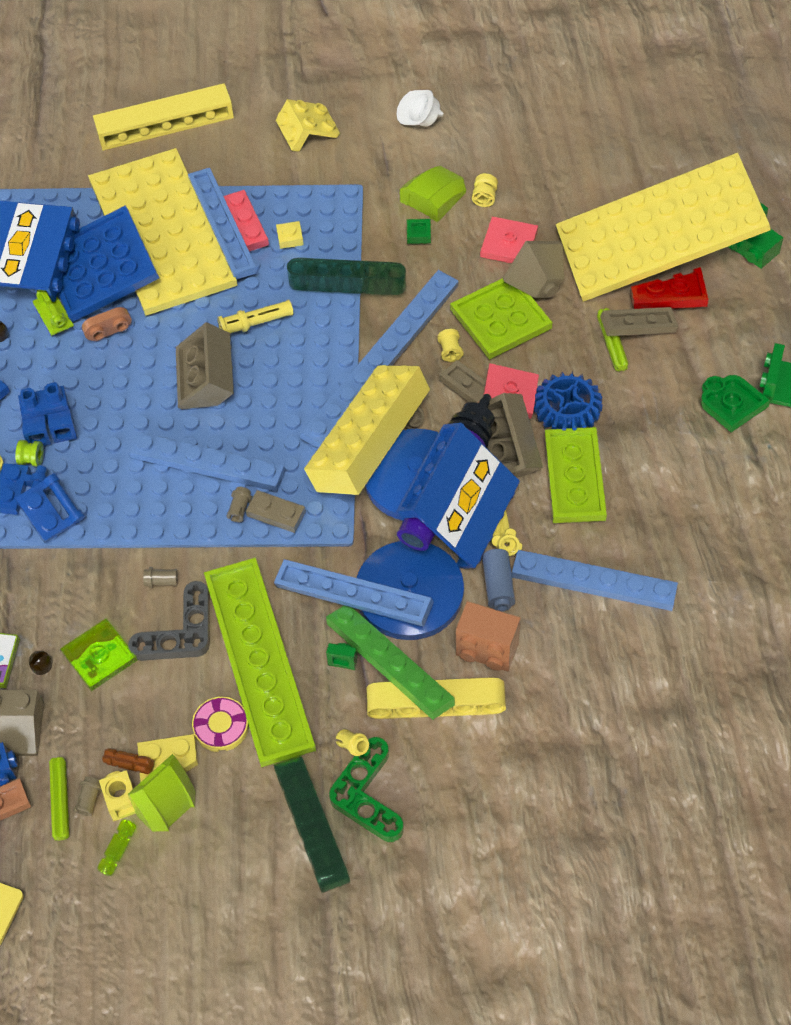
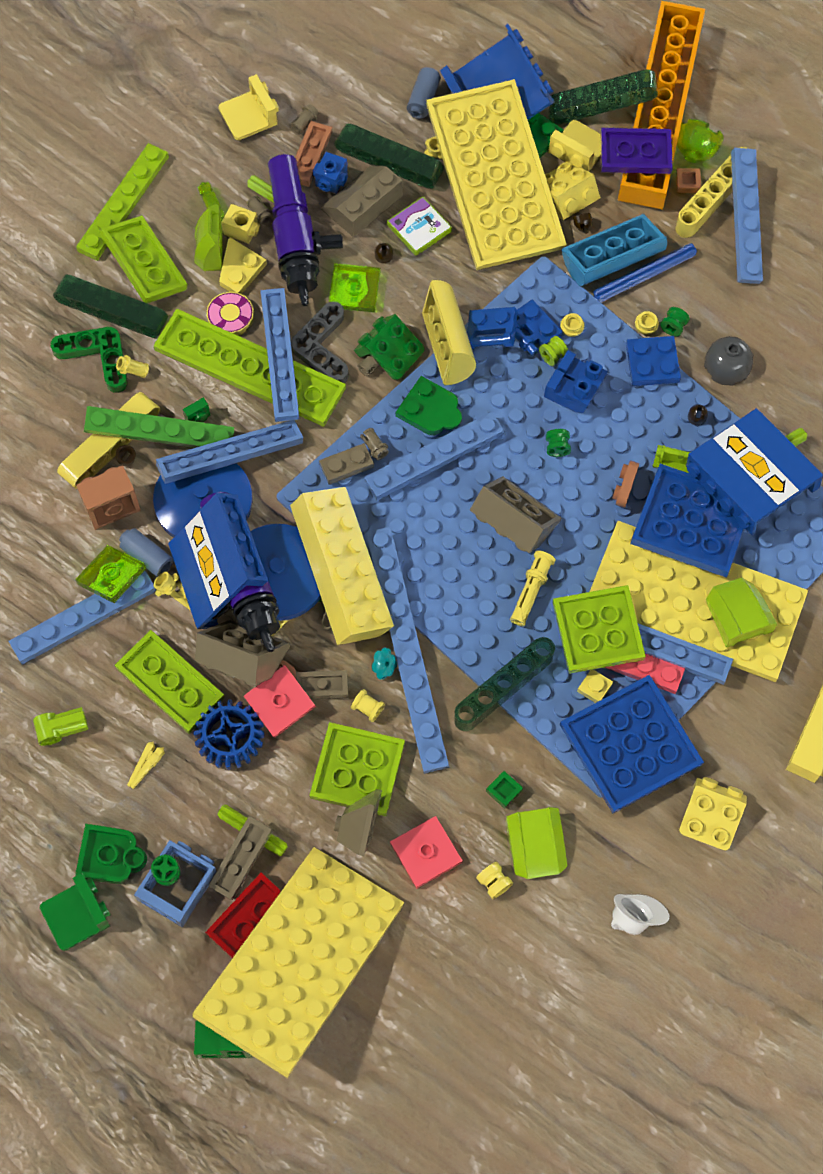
camera: 130 degrees right, 10 degrees up
(86, 529) = (448, 334): none -> light yellow brick
(90, 732) = (294, 231): none -> dark purple piece
(114, 388) = (558, 442): none -> green wheel
(128, 761) = (255, 243): dark orange axle -> none
(134, 577) = (391, 346): none -> green bracket
(150, 184) = (739, 611): none -> lime slope
(166, 497) = (430, 408): none -> green plate
(187, 929) = (123, 199): none -> lime plate
(225, 634) = (279, 355): none -> medium blue plate
(236, 839) = (143, 259): none -> lime plate
(248, 248) = (598, 629): none -> lime plate
(310, 186) = (631, 743): none -> blue plate
(409, 356) = (384, 663): none -> teal plant
(436, 670) = (120, 453): none -> dark brown hinge
(543, 584) = (110, 574): none -> clear neon green tile
(645, 440) = (146, 763): none -> light yellow piece
(695, 513) = (52, 726): none -> lime piece
(698, 326) = (164, 908): none -> medium blue window
(700, 333) = (161, 866): none -> green wheel

